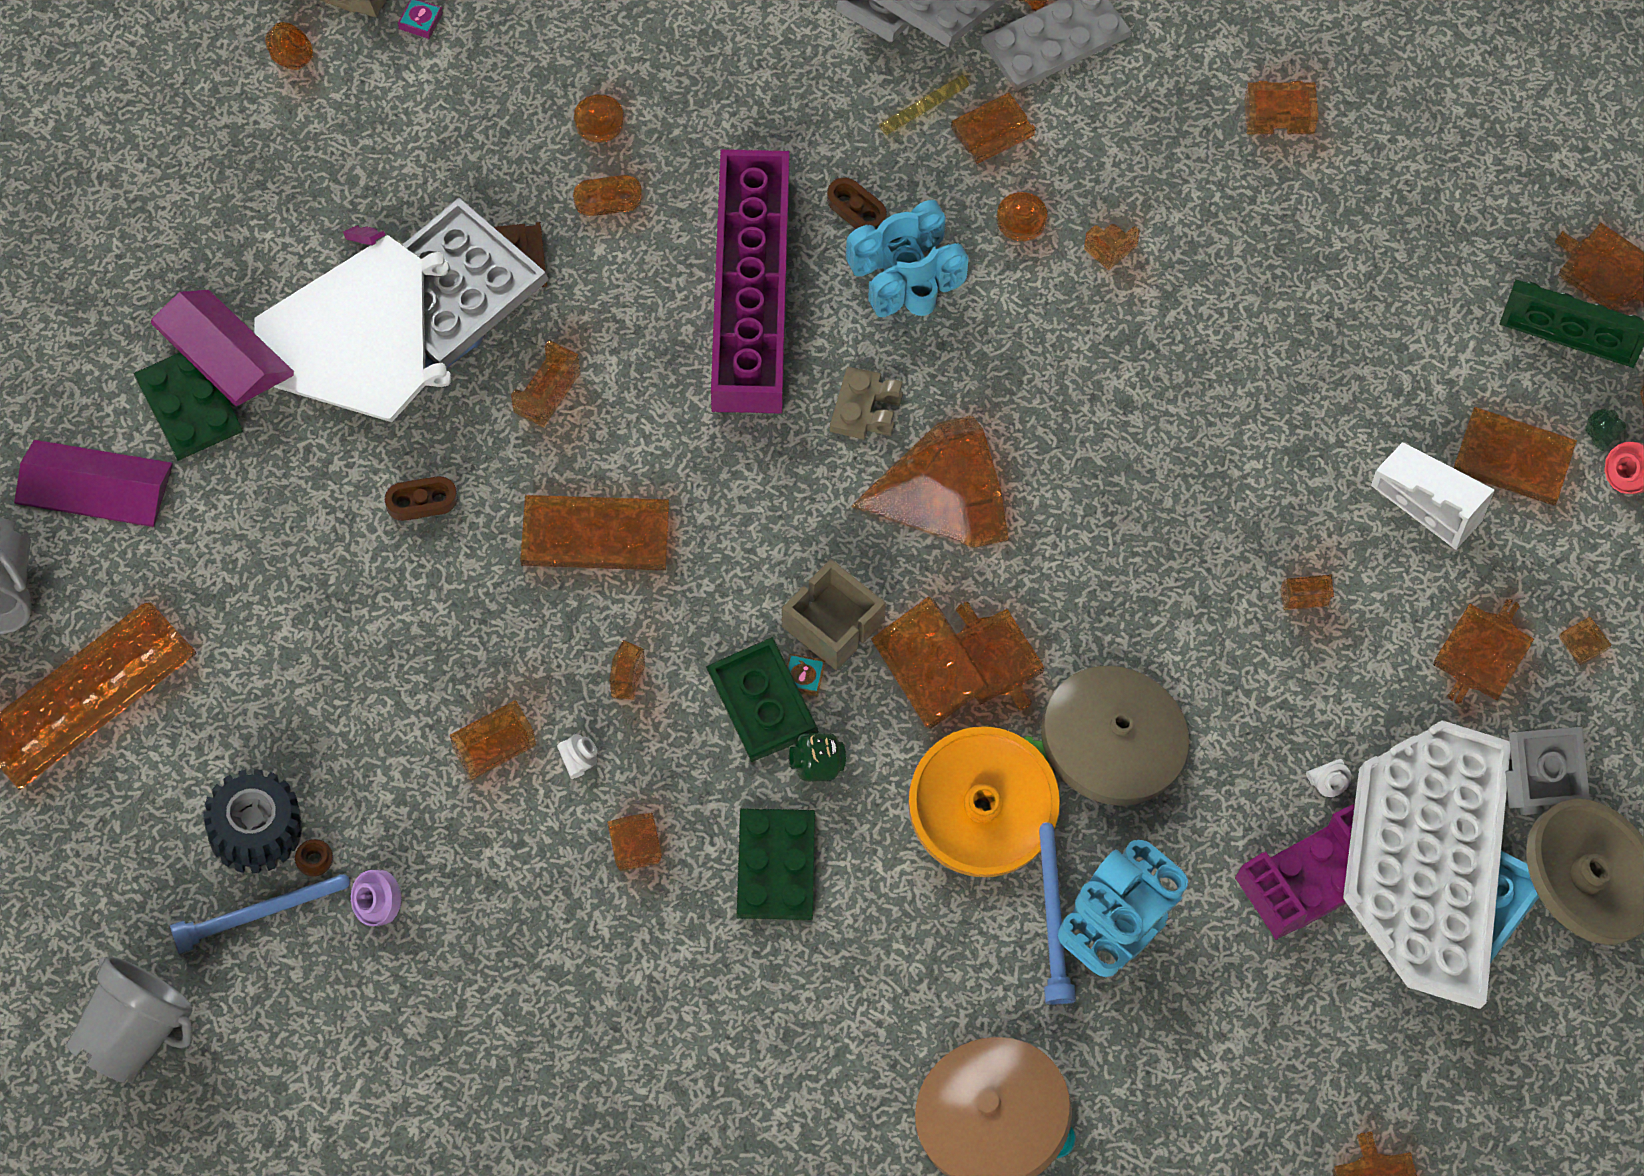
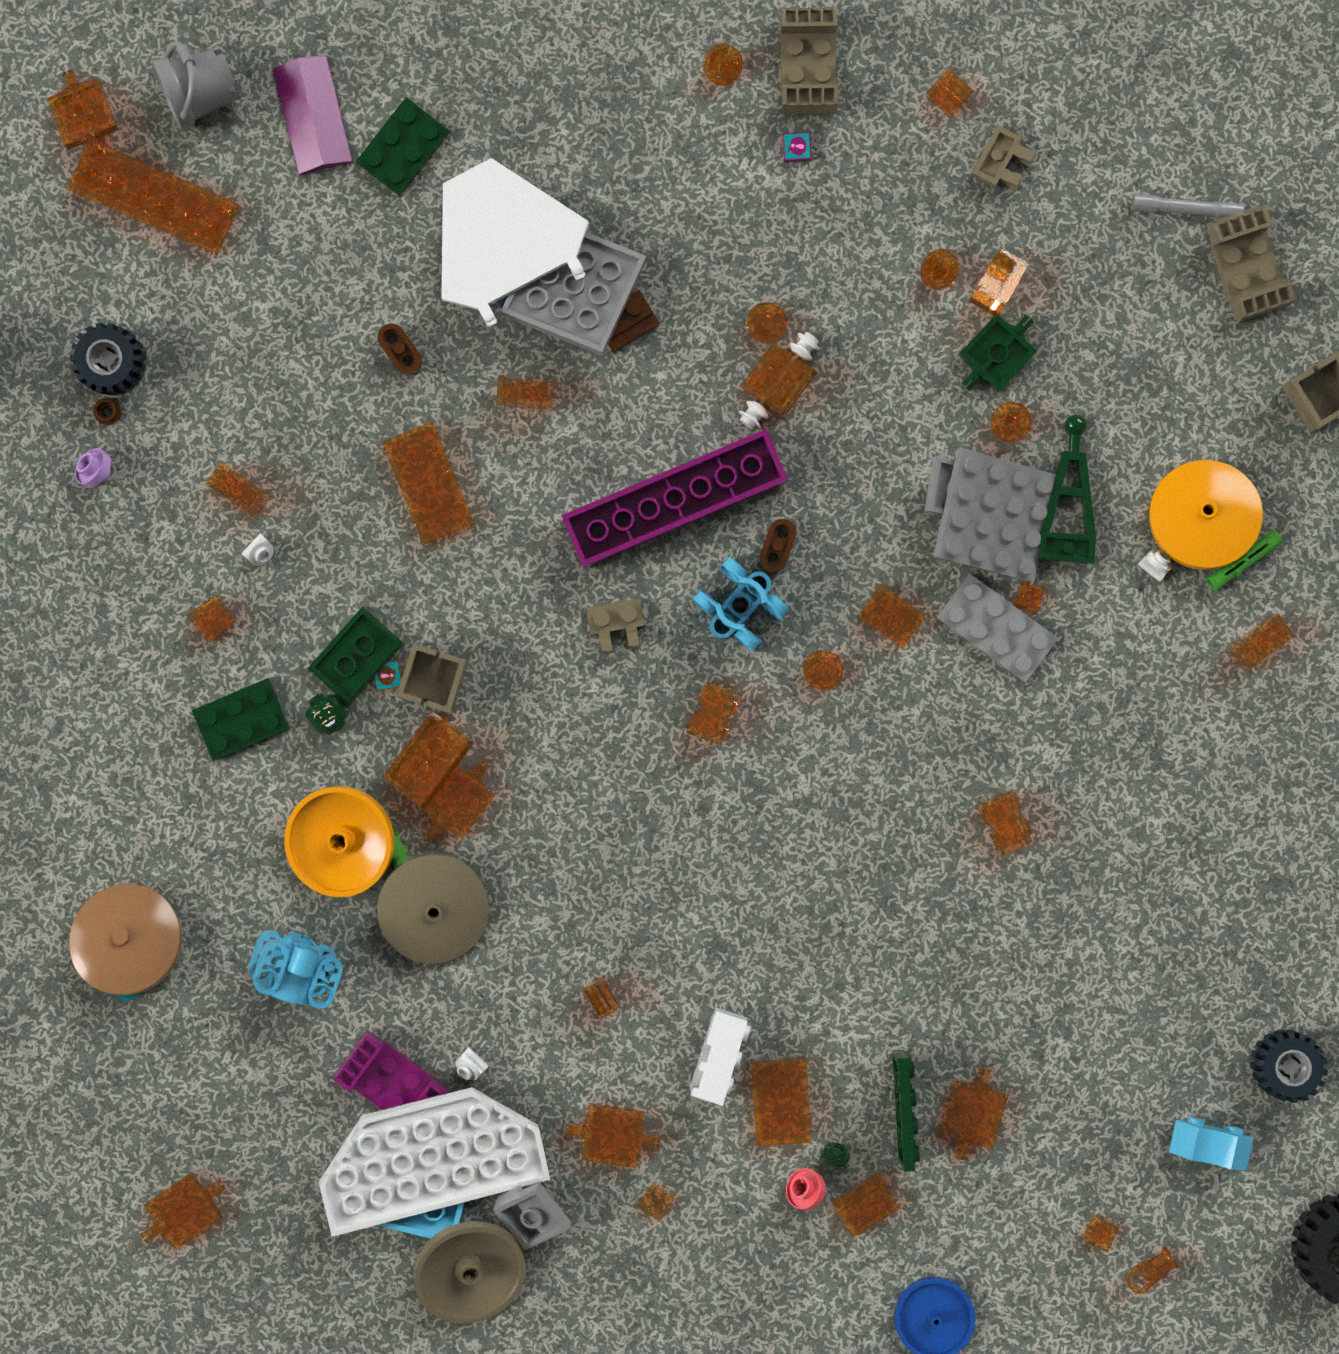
camera: 70 degrees right, 25 degrees up
(189, 934) = (15, 356): medium blue piece -> none
(220, 345) = (452, 148): magenta slope -> none
(363, 235) = (587, 202): magenta piece -> none
(607, 194) = (704, 361): clear orange plate -> none
(626, 670) = (328, 555): clear orange piece -> none
(669, 130) = (778, 380): none -> clear orange plate
(924, 105) = (891, 555): clear yellow bar -> none
(944, 486) = (576, 706): clear orange wedge -> none
(1019, 341) = (712, 719): none -> clear orange brick
(1059, 986) = (233, 945): medium blue piece -> none
(1111, 244) = (830, 744): clear orange panel -> none

